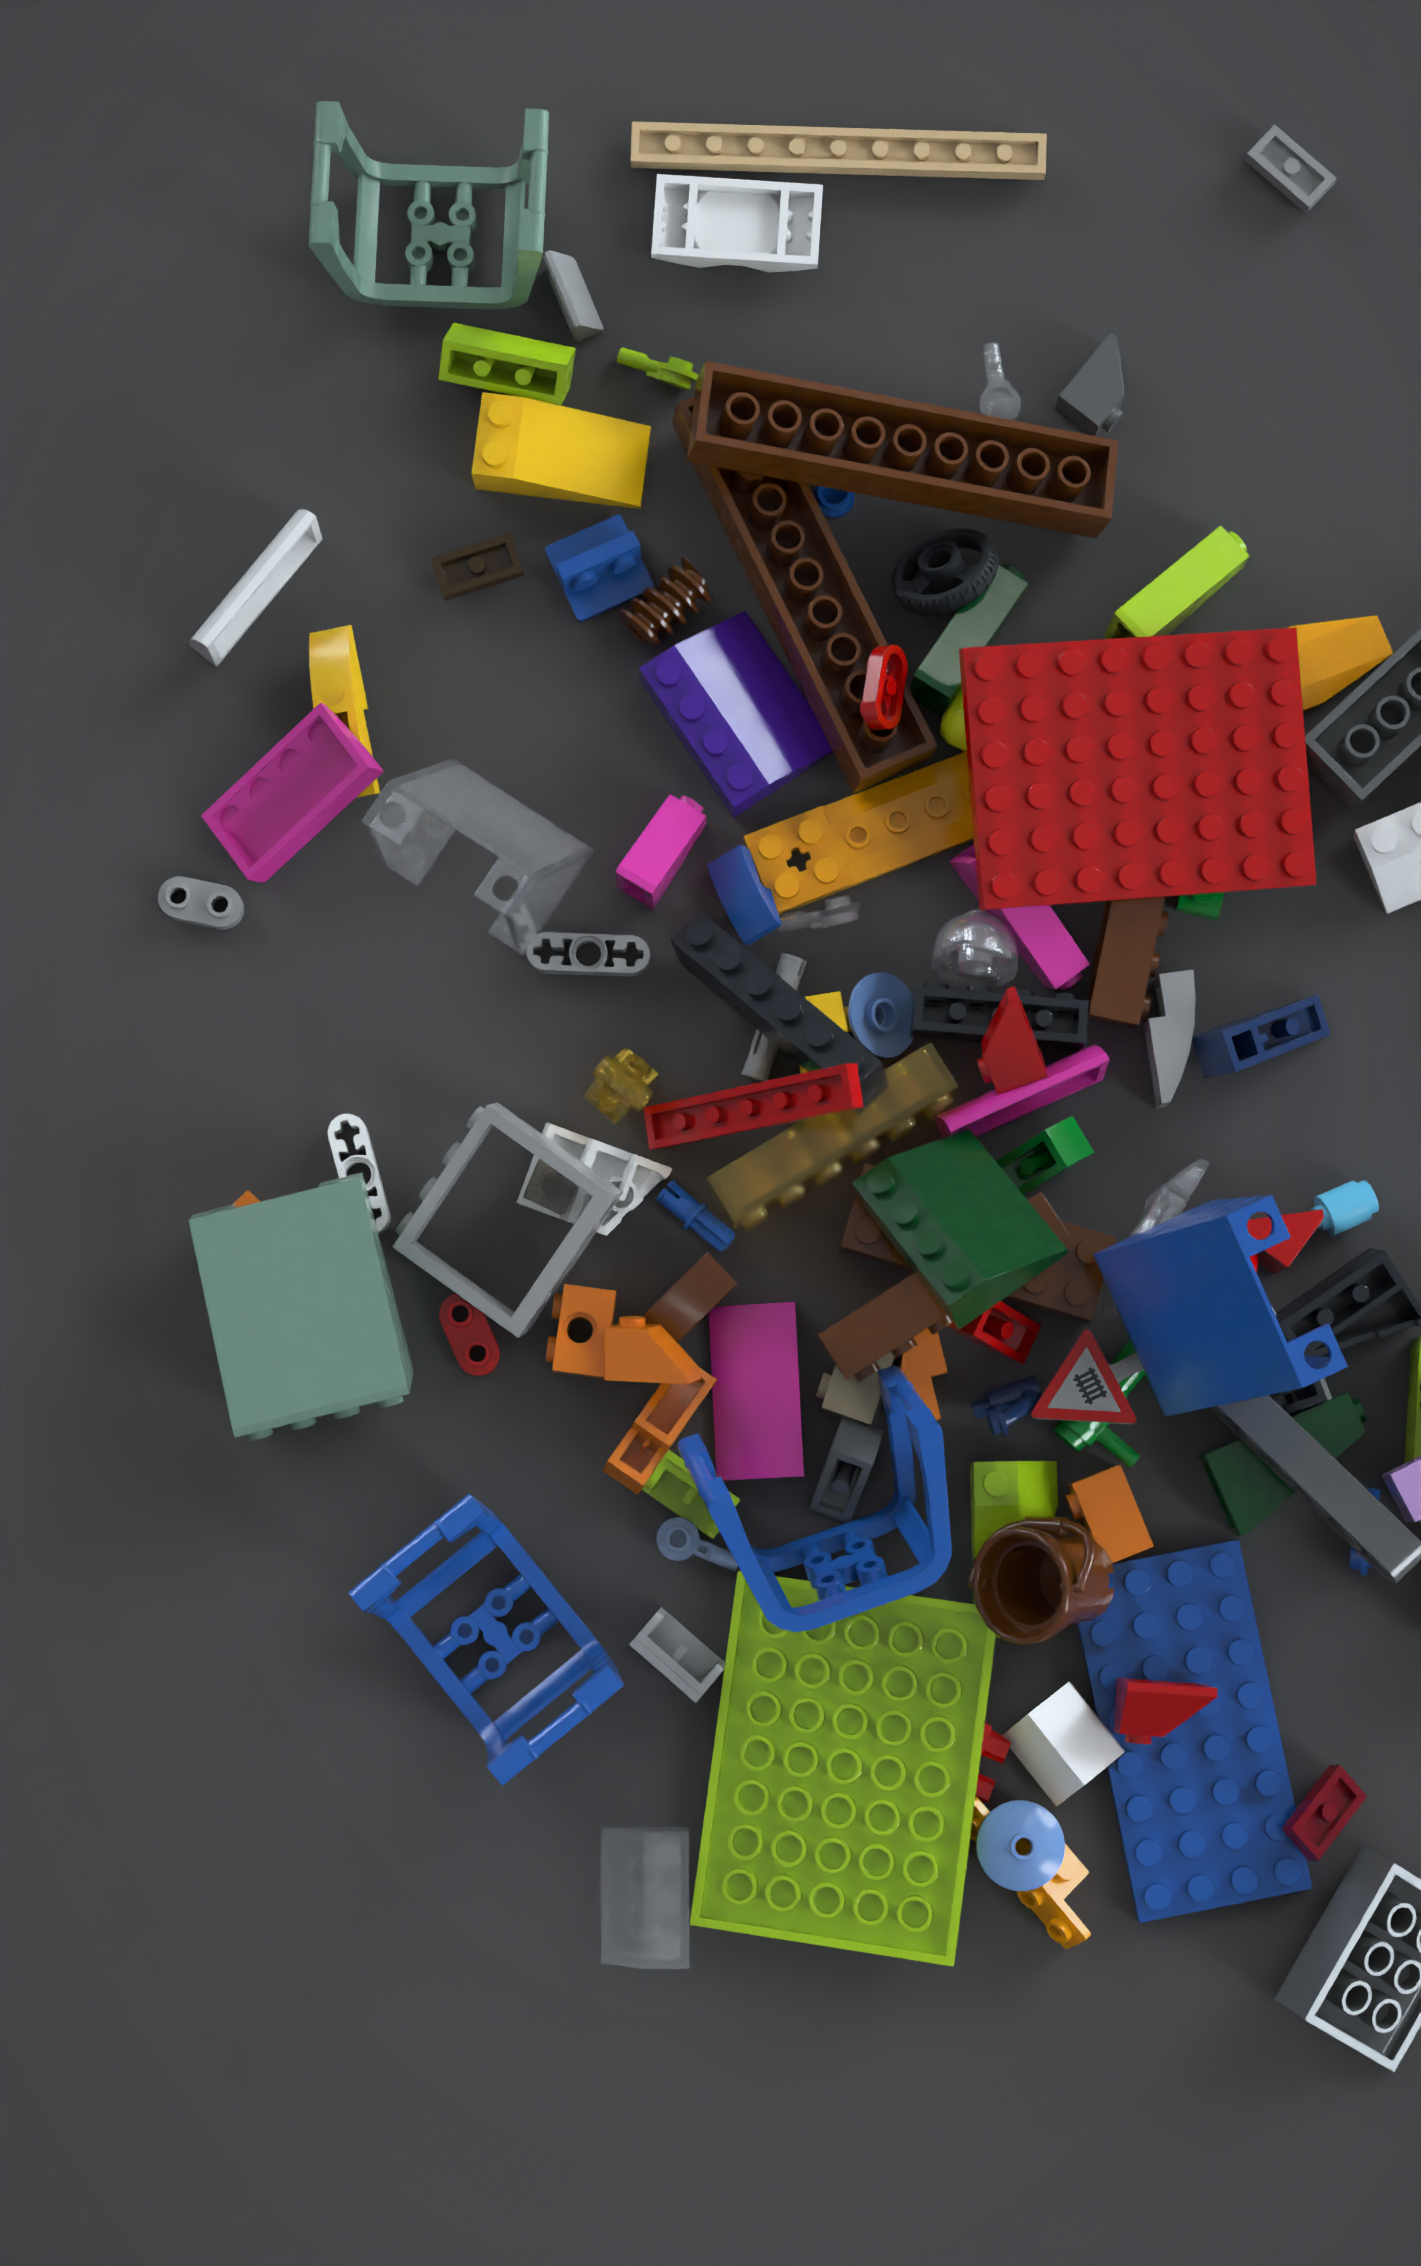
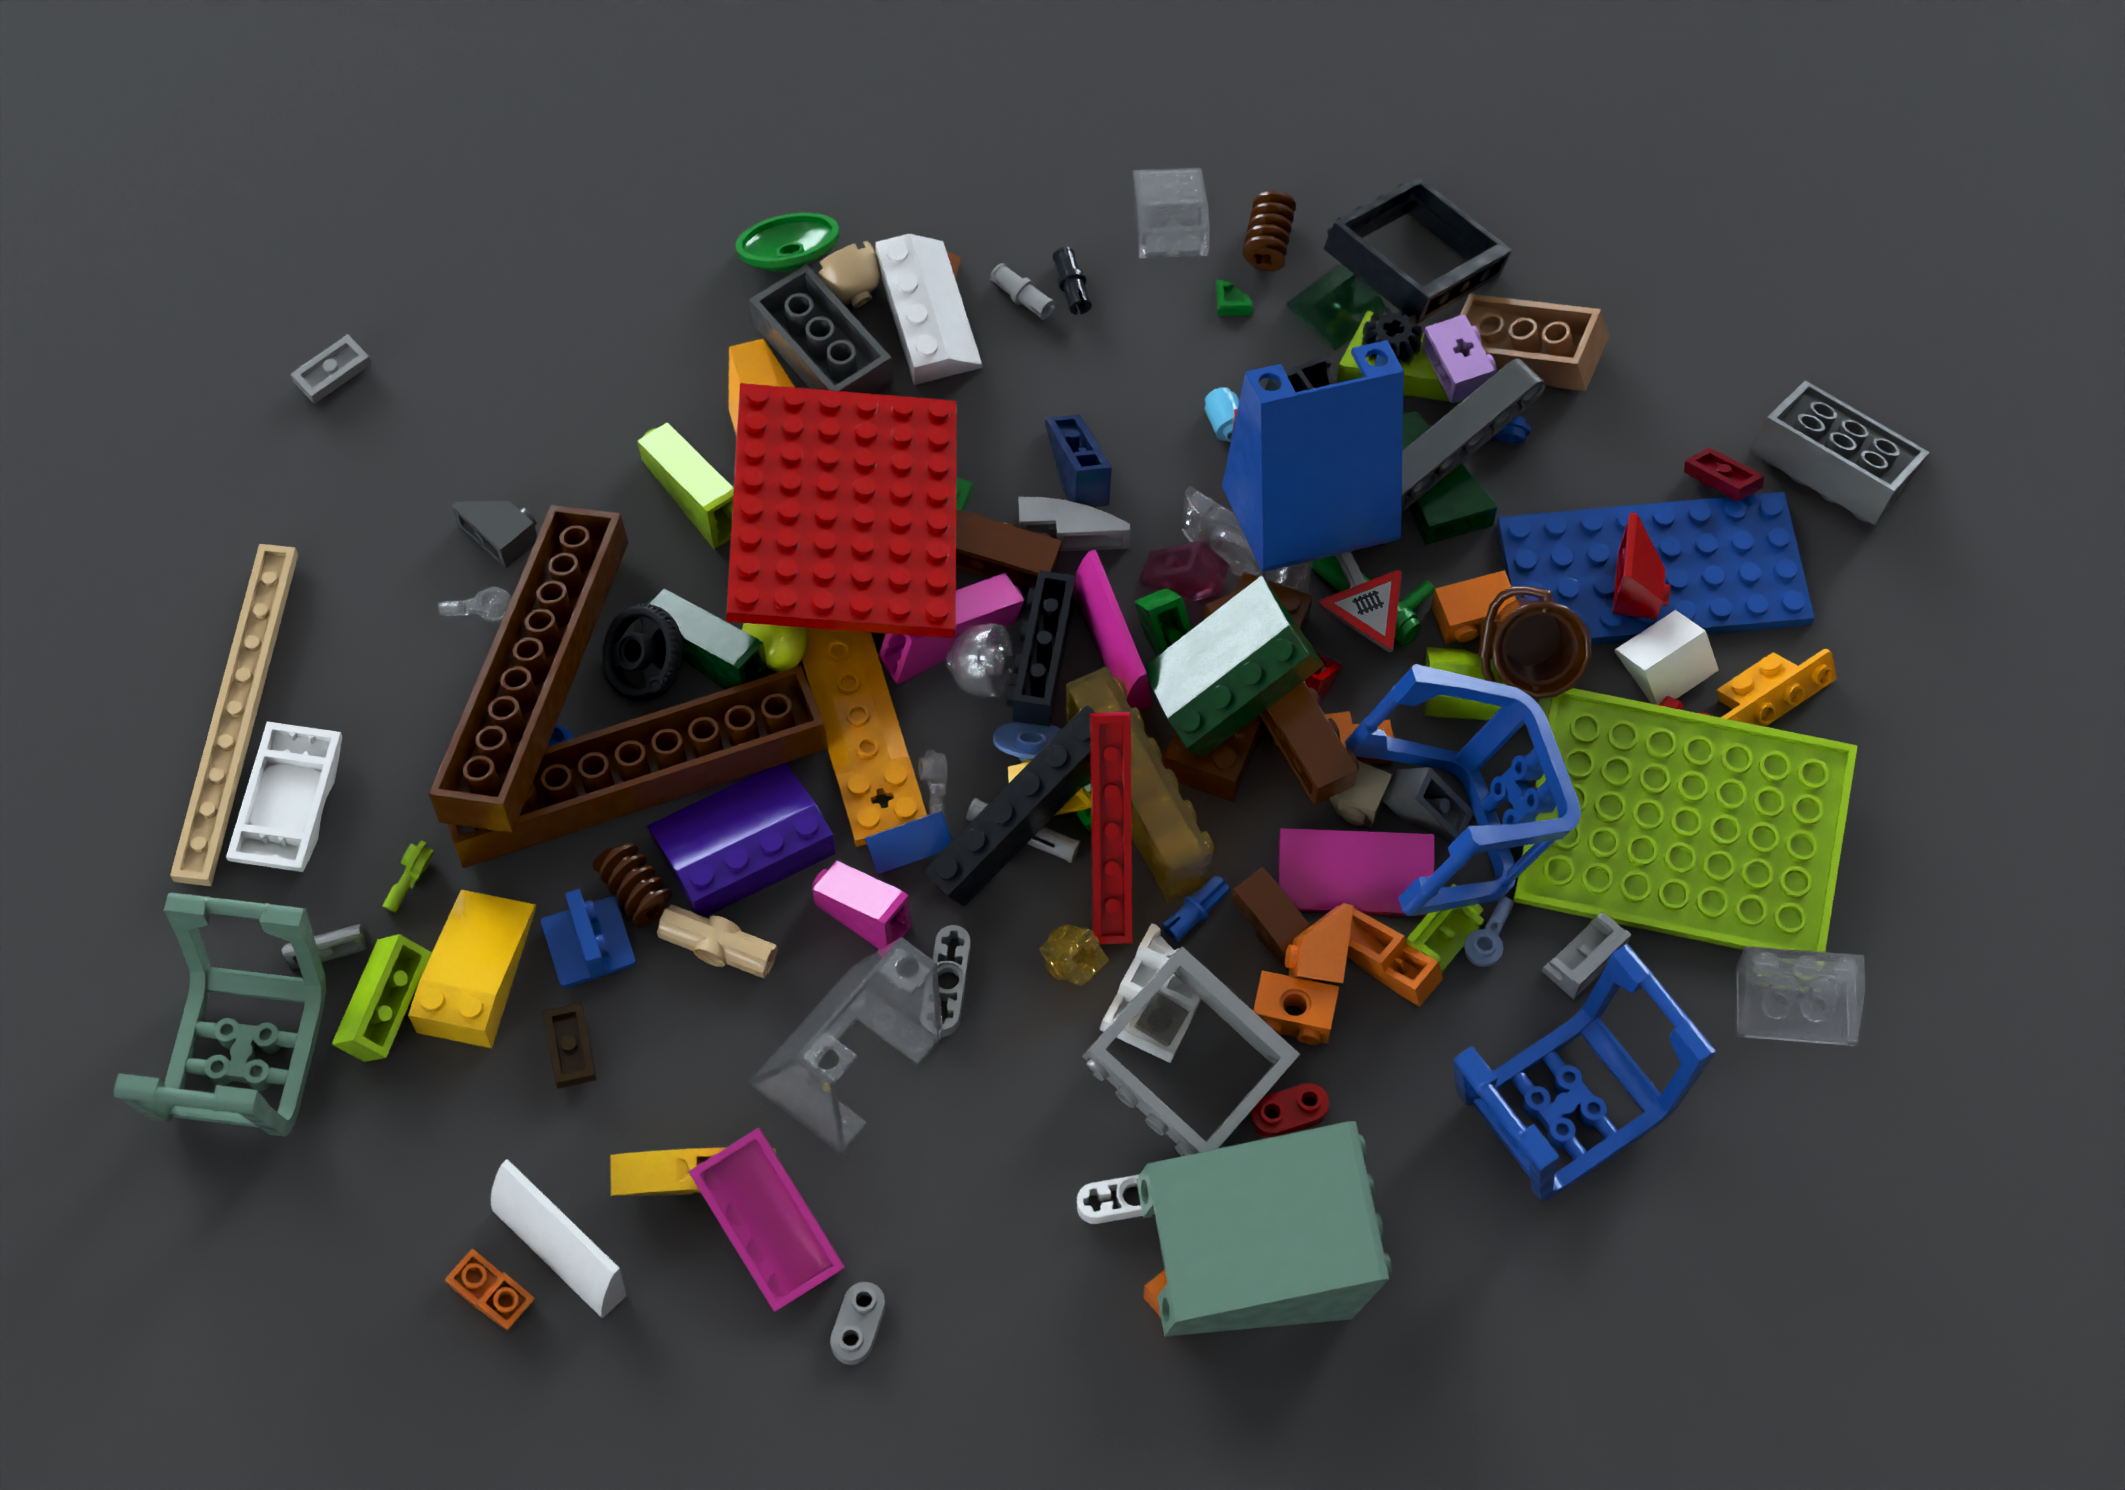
camera: 85 degrees left, 20 degrees down
(208, 530) = (489, 1289): none -> orange slope
(609, 703) = (717, 941): none -> tan piece
(884, 687) = (731, 692): red plate -> none
(997, 1845) = (1750, 703): medium blue dish -> none
(1007, 1404) = (1378, 670): dark blue plant -> none
(1010, 1048) = (1074, 625): red slope -> none
(1122, 1173) = (1187, 570): none -> clear pink slope

